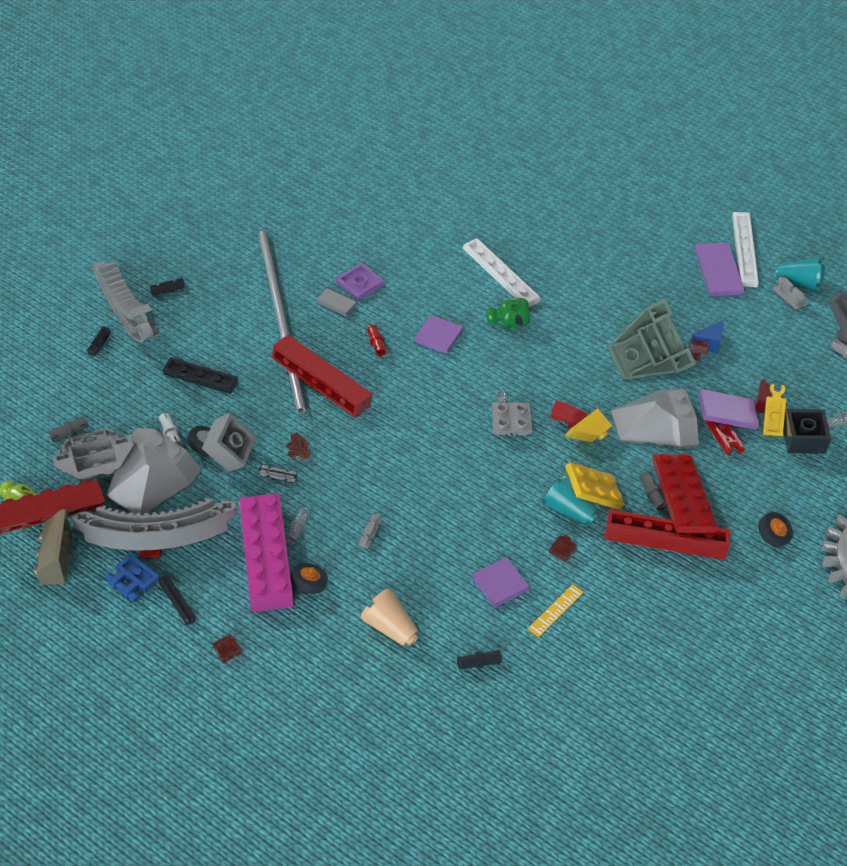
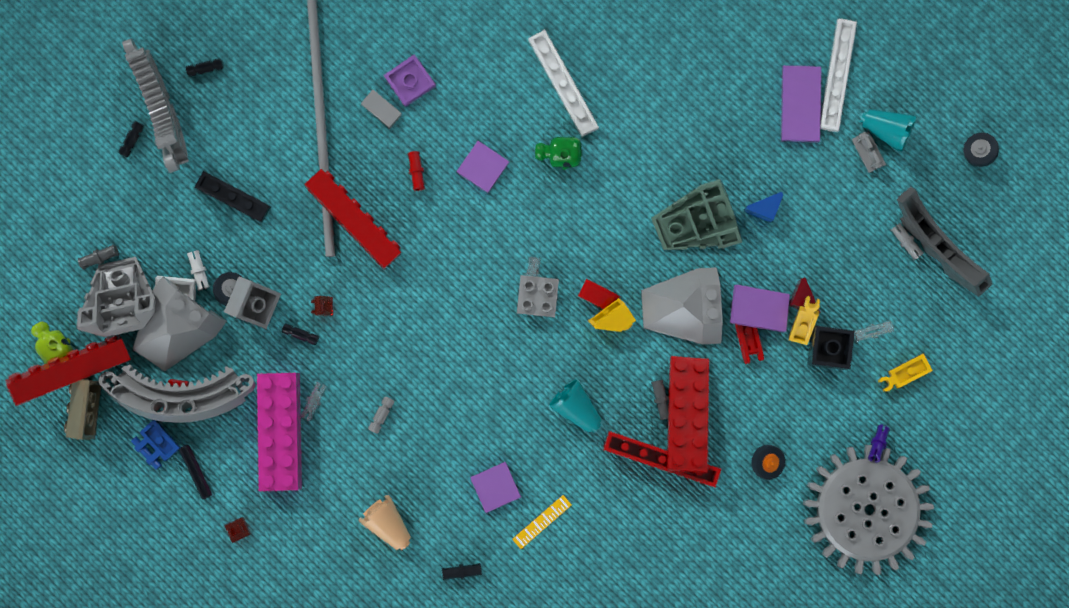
camera: 10 degrees right, 35 degrees up
(309, 578) = (317, 466): black wheel -> none
(563, 548) = (561, 455): clear red tile -> none
(594, 486) = (602, 396): yellow plate -> none
(698, 348) = (749, 223): tile -> none

